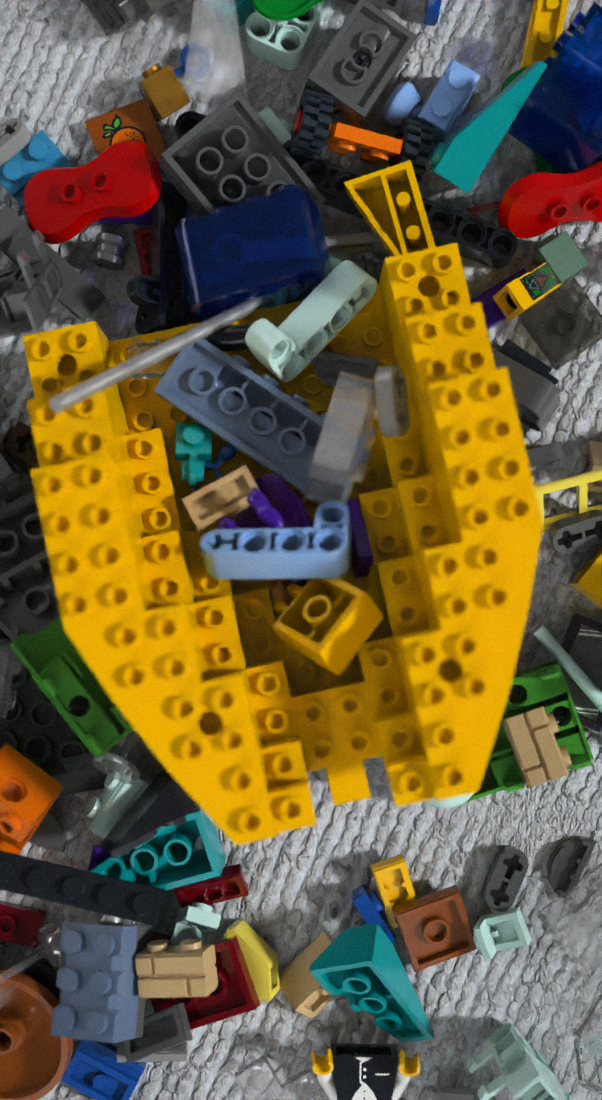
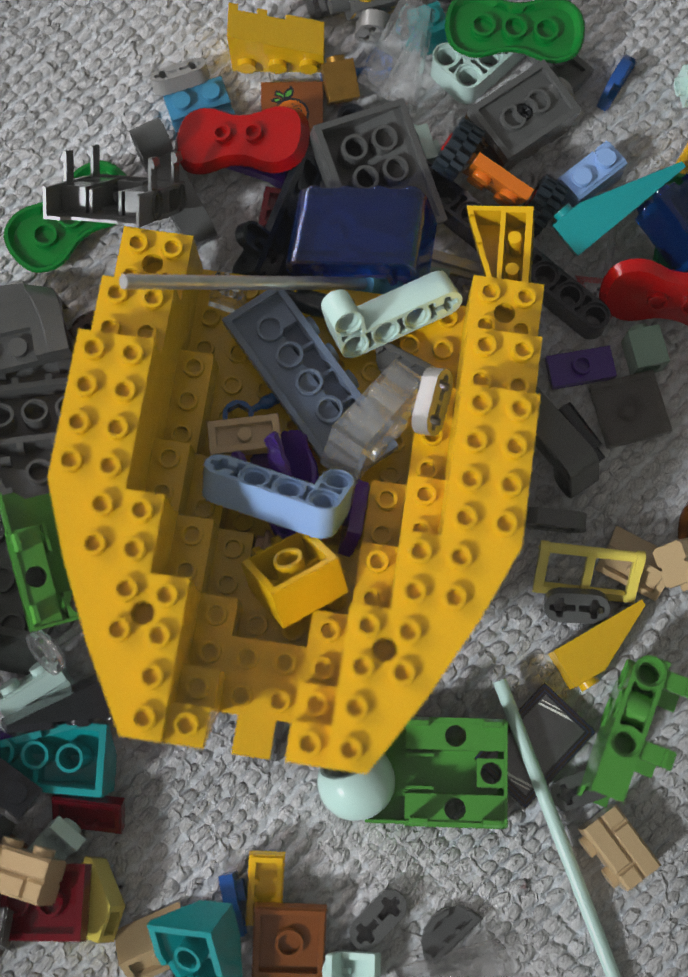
camera: 25 degrees right, 10 degrees down
(82, 75) = (274, 43): none -> yellow wedge
(110, 251) = (237, 197): dark grey wheel -> none
(173, 21) = (371, 25): none -> light grey beam
(193, 448) = (236, 384): teal plate -> none
(401, 104) = (548, 161): light blue cone -> none
(526, 291) = (603, 364): leg -> none
(536, 746) = (454, 791): tan brick -> none

